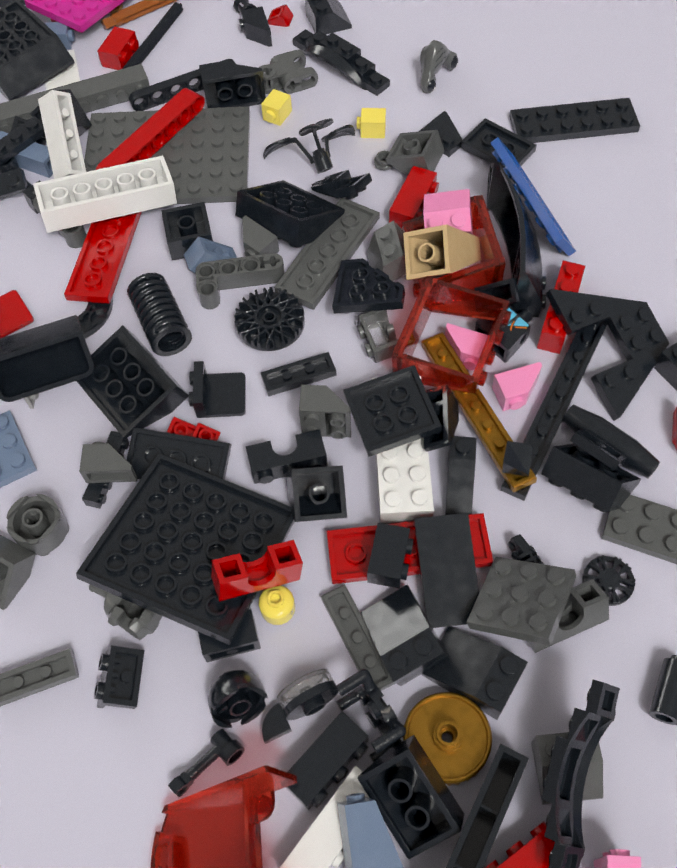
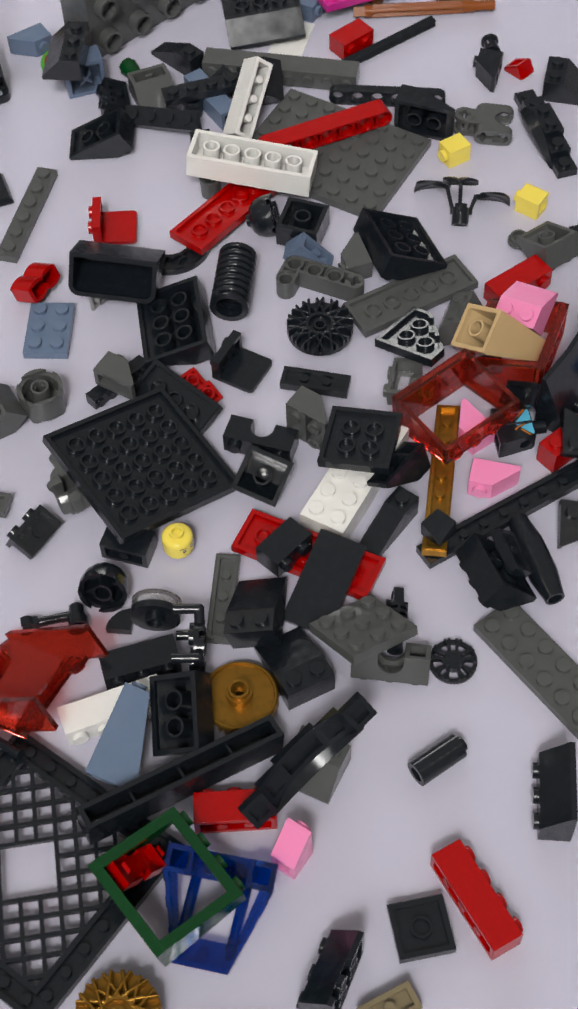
camera: 30 degrees right, 5 degrees down
(145, 240) = (263, 216): none -> black cylinder
(237, 578) = (156, 500): red arch -> none
(342, 185) = (462, 244): black plate -> none

